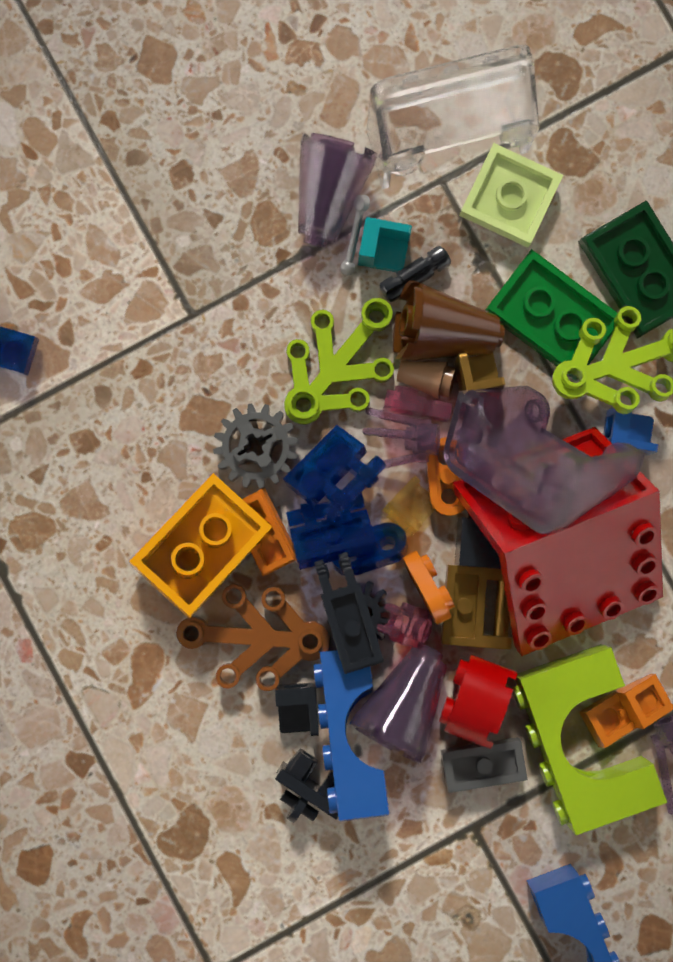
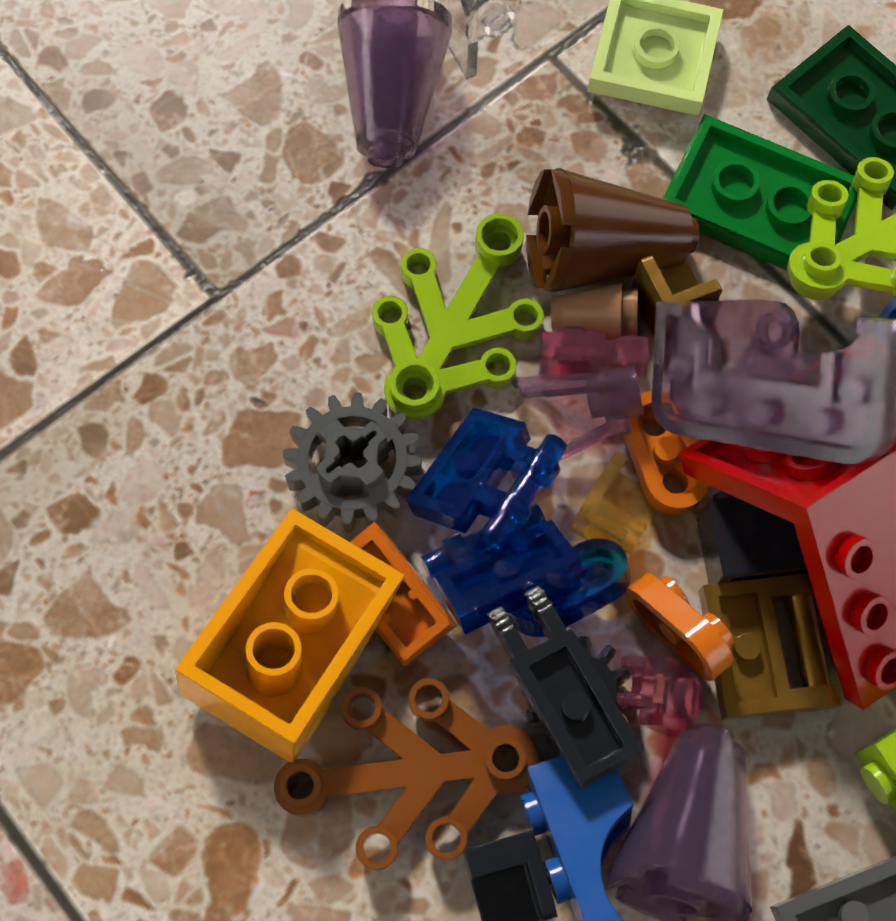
camera: 10 degrees left, 15 degrees down
(361, 204) = (443, 87): light grey hinge -> none
(384, 244) = (488, 143): teal panel -> none
(418, 271) = (566, 154): black axle -> none
(478, 701) = (817, 797): red brick -> none

